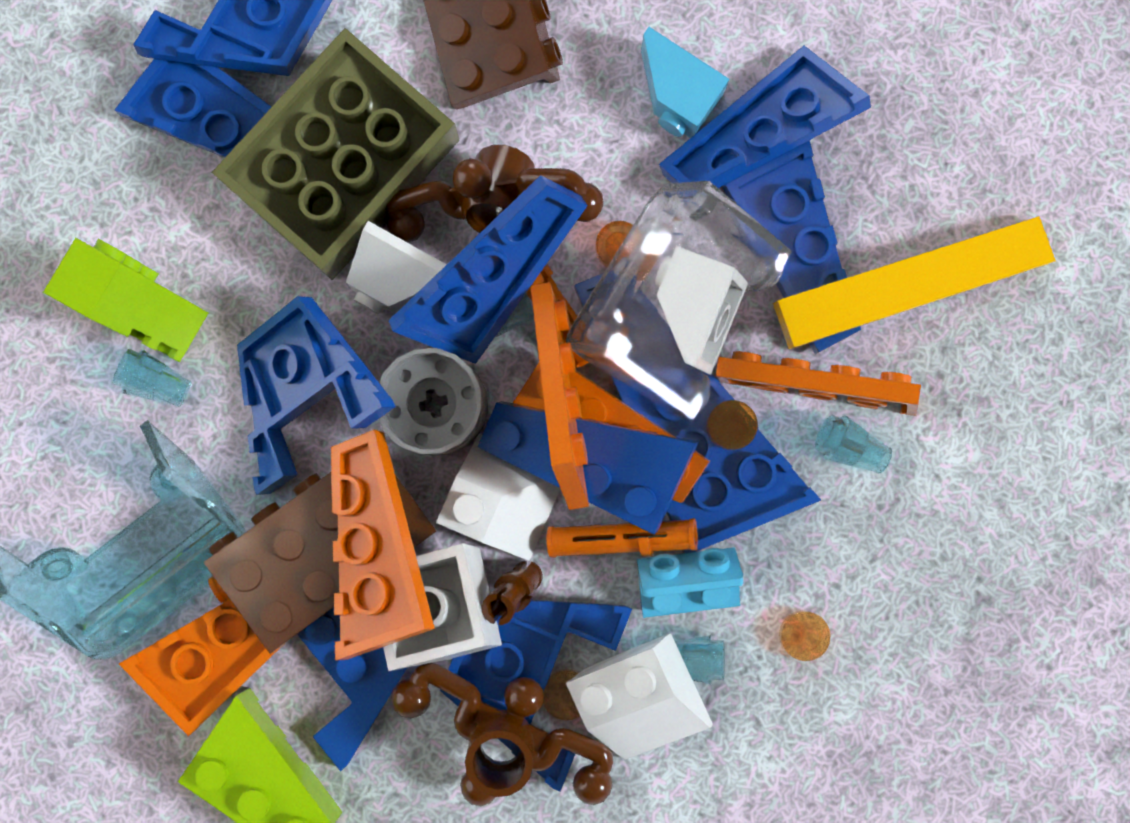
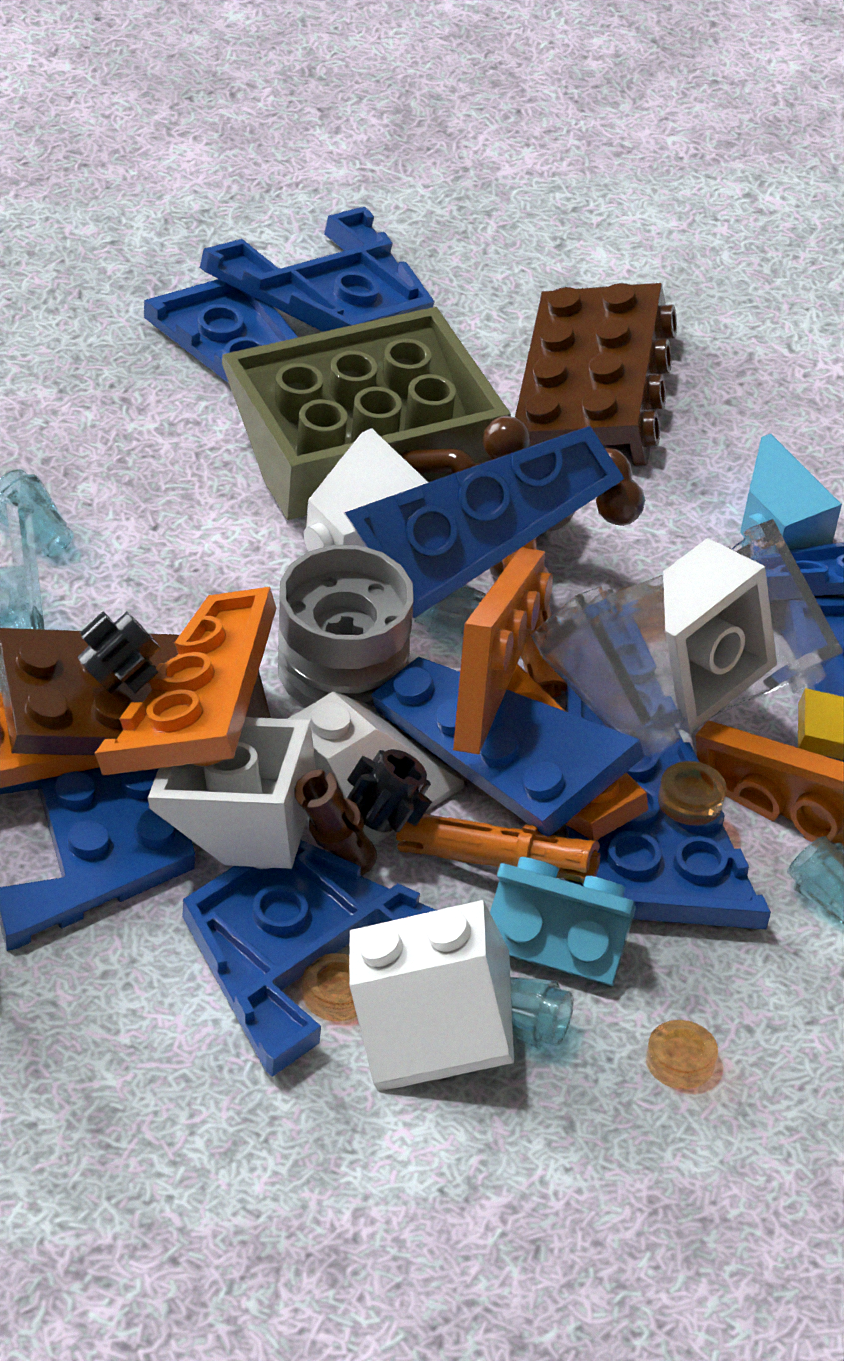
camera: 20 degrees right, 40 degrees down
(125, 297) = (61, 408): lime wedge -> none
(290, 368) = (203, 541): blue wing -> none
(304, 563) = (119, 652): none -> black gear
(481, 722) = (259, 971): reddish brown wheel -> none
(526, 554) = (390, 790): none -> black gear

